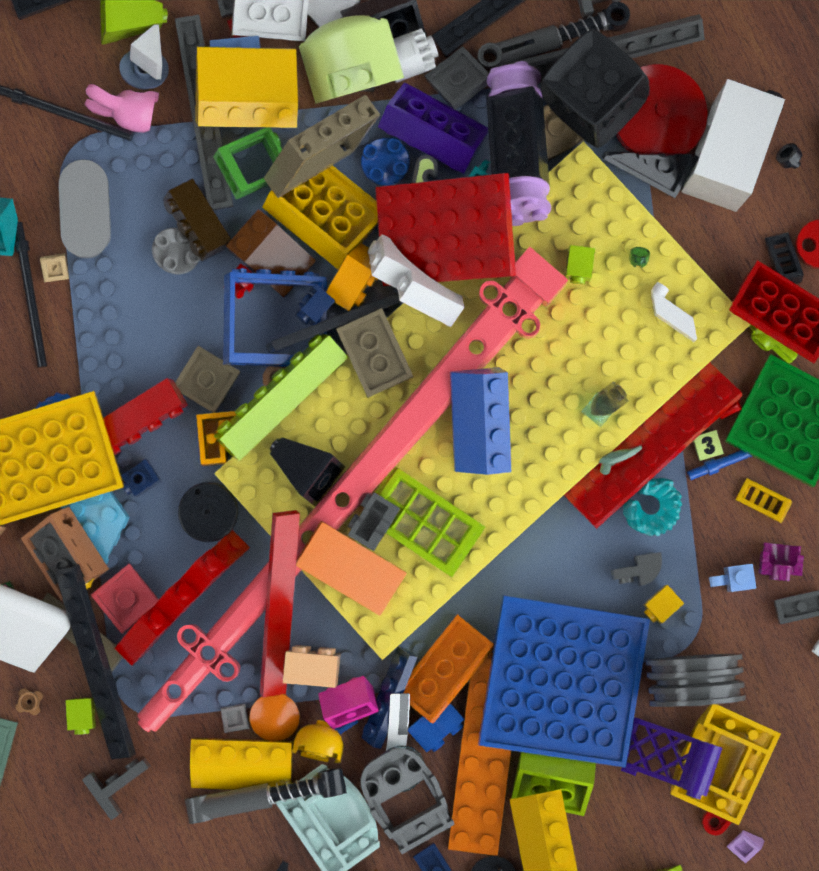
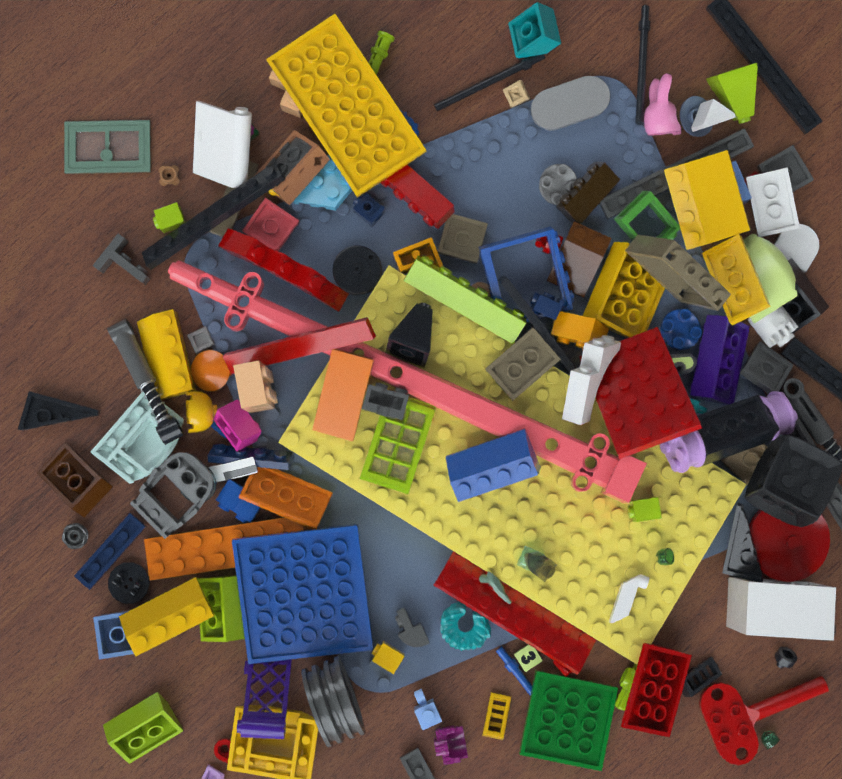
camera: 70 degrees right, 0 degrees up
(340, 81) = (735, 271): none -> yellow plate

